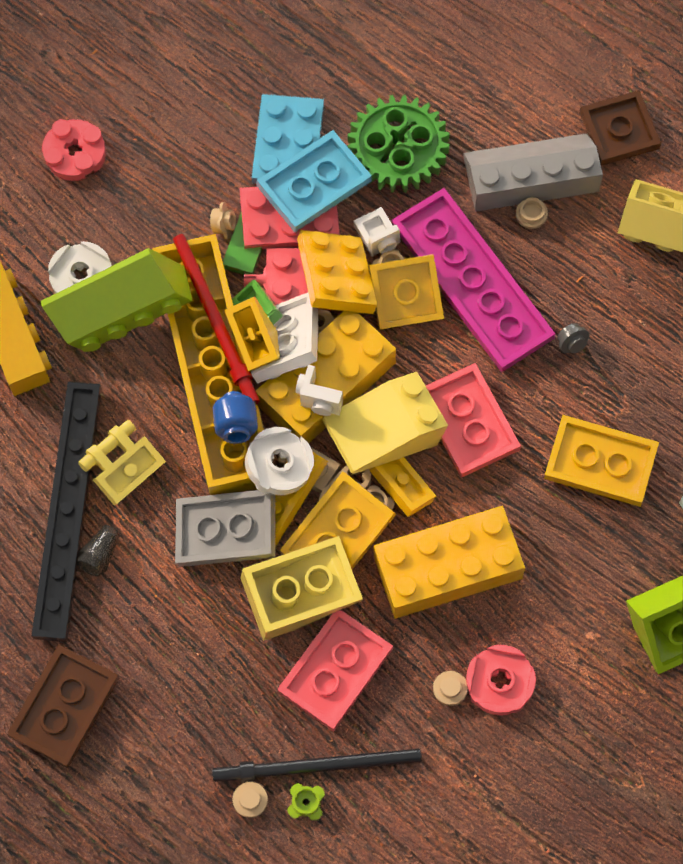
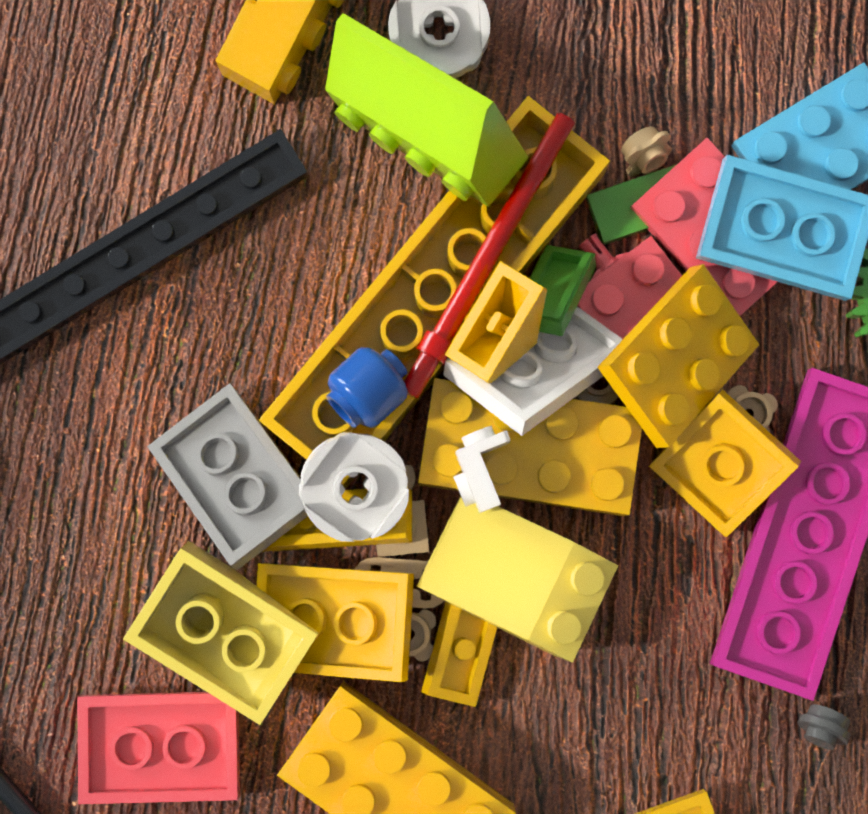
camera: 55 degrees right, 15 degrees up
(97, 553) = (95, 339): clear smoke cone -> none
(129, 469) = (222, 294): light yellow plate -> none
(377, 232) = (781, 361): white bracket -> none
(476, 425) = (614, 677): coral plate -> none

